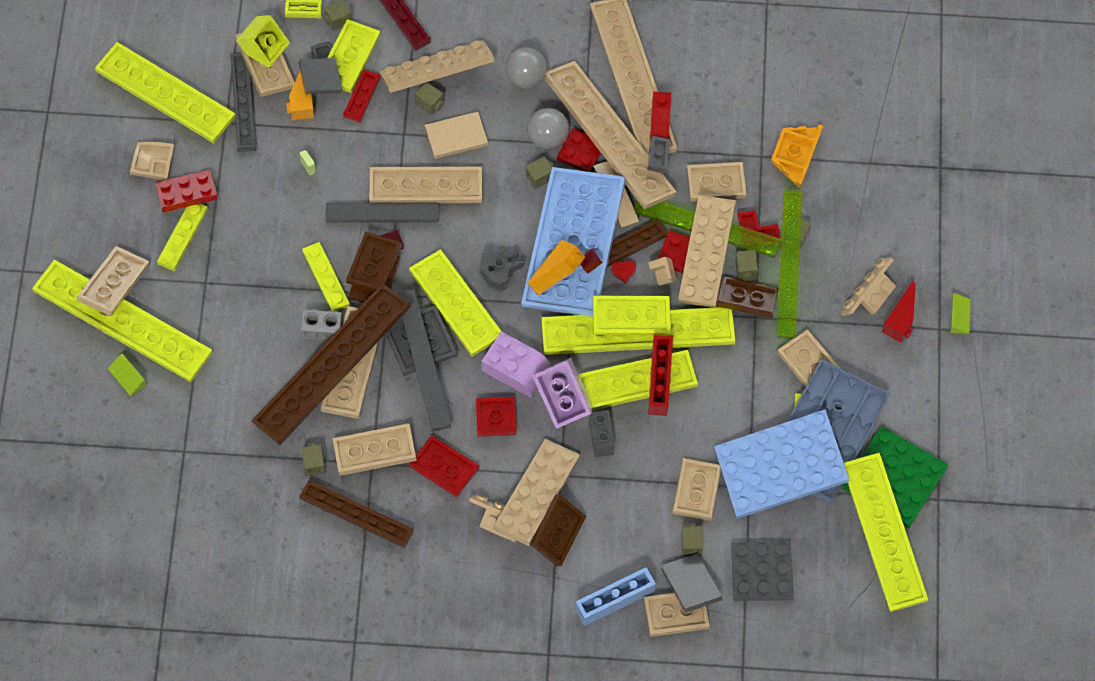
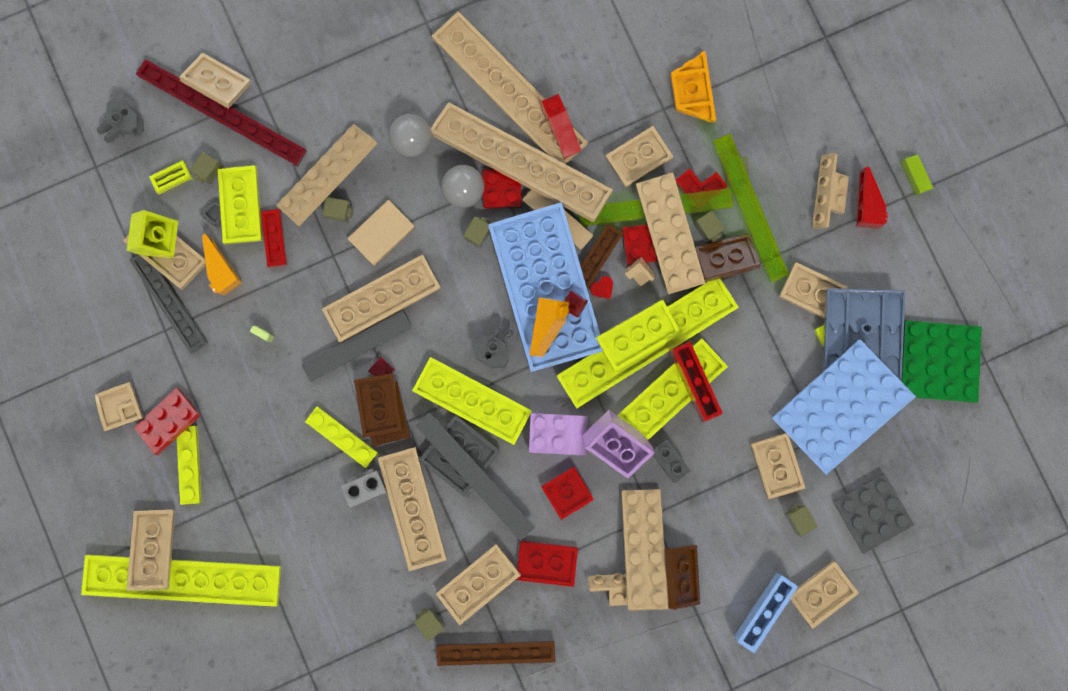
camera: 25 degrees left, 20 degrees up
(126, 375) = (216, 630): lime slope -> none
(165, 92) = (90, 331): neon yellow plate -> none
(320, 76) = (225, 243): dark grey tile -> none
(331, 364) = (395, 525): reddish brown plate -> none
(658, 154) = (578, 161): dark grey plate -> none
(691, 583) = (823, 562): tile -> none
(885, 533) = (964, 424): neon yellow plate -> none

